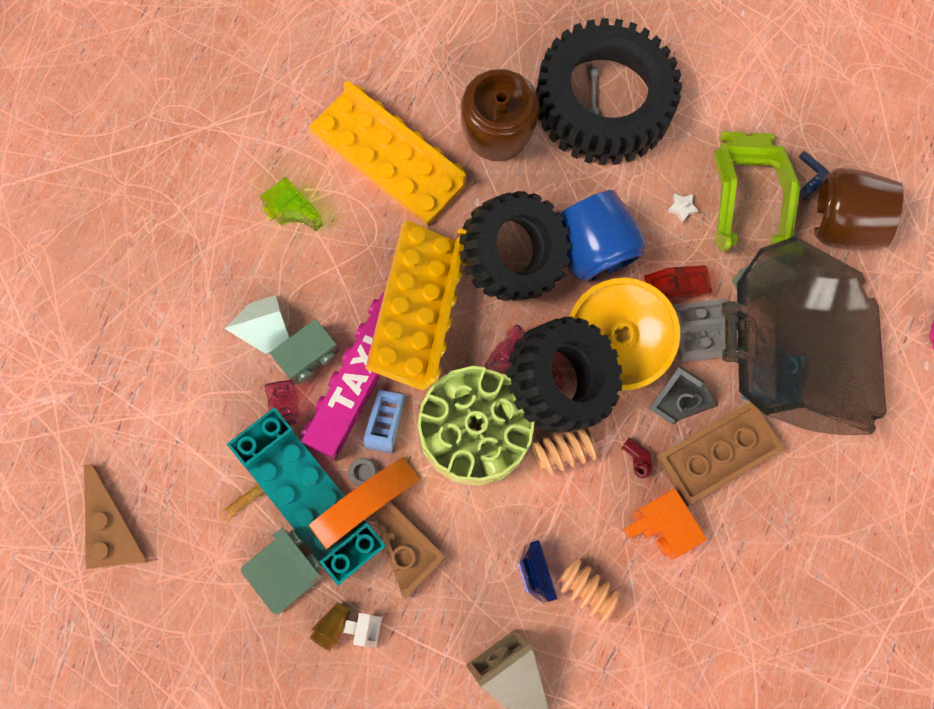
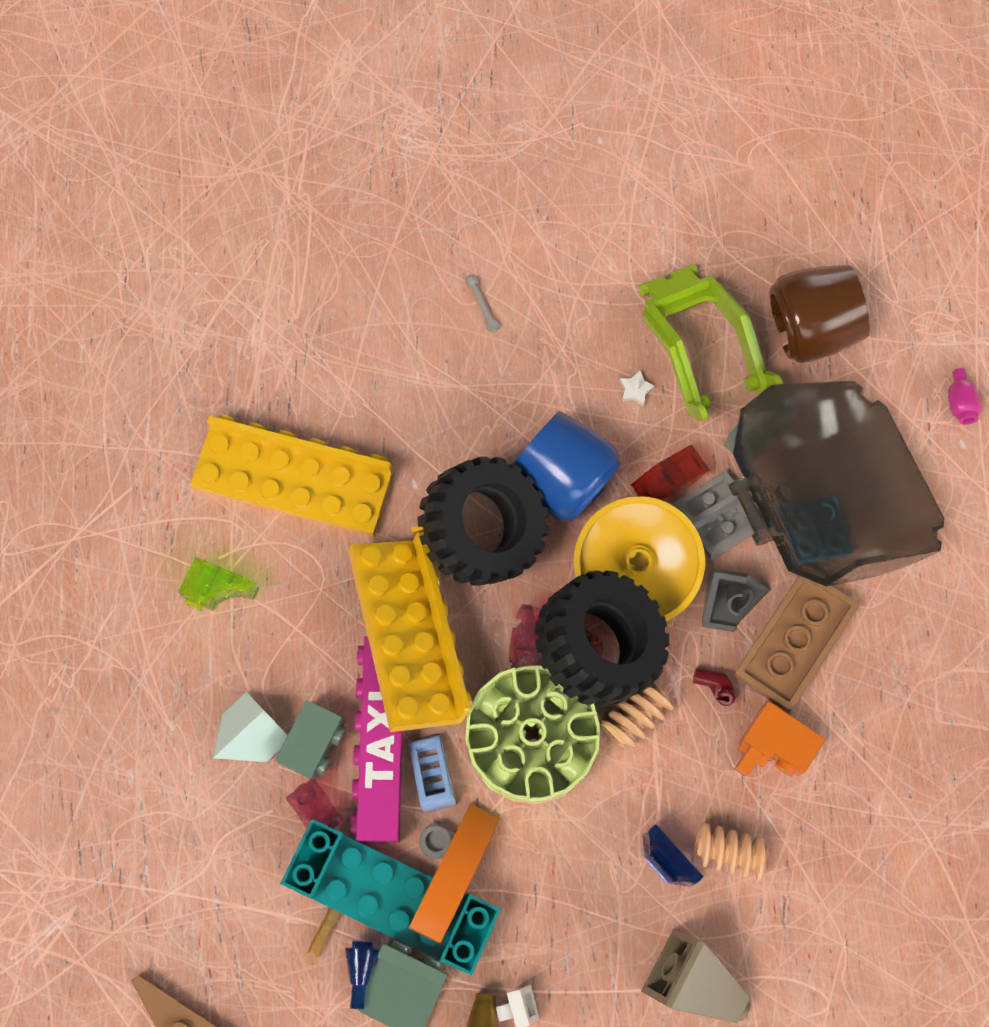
camera: 20 degrees left, 0 degrees up
(258, 538) = (360, 965): none -> clear blue cone
(409, 550) = (524, 900): medium nougat wing -> none
(499, 114) = (395, 379): reddish brown piece -> none
(598, 134) = (486, 352): black tyre -> none
(817, 180) = (763, 292): dark blue piece -> none

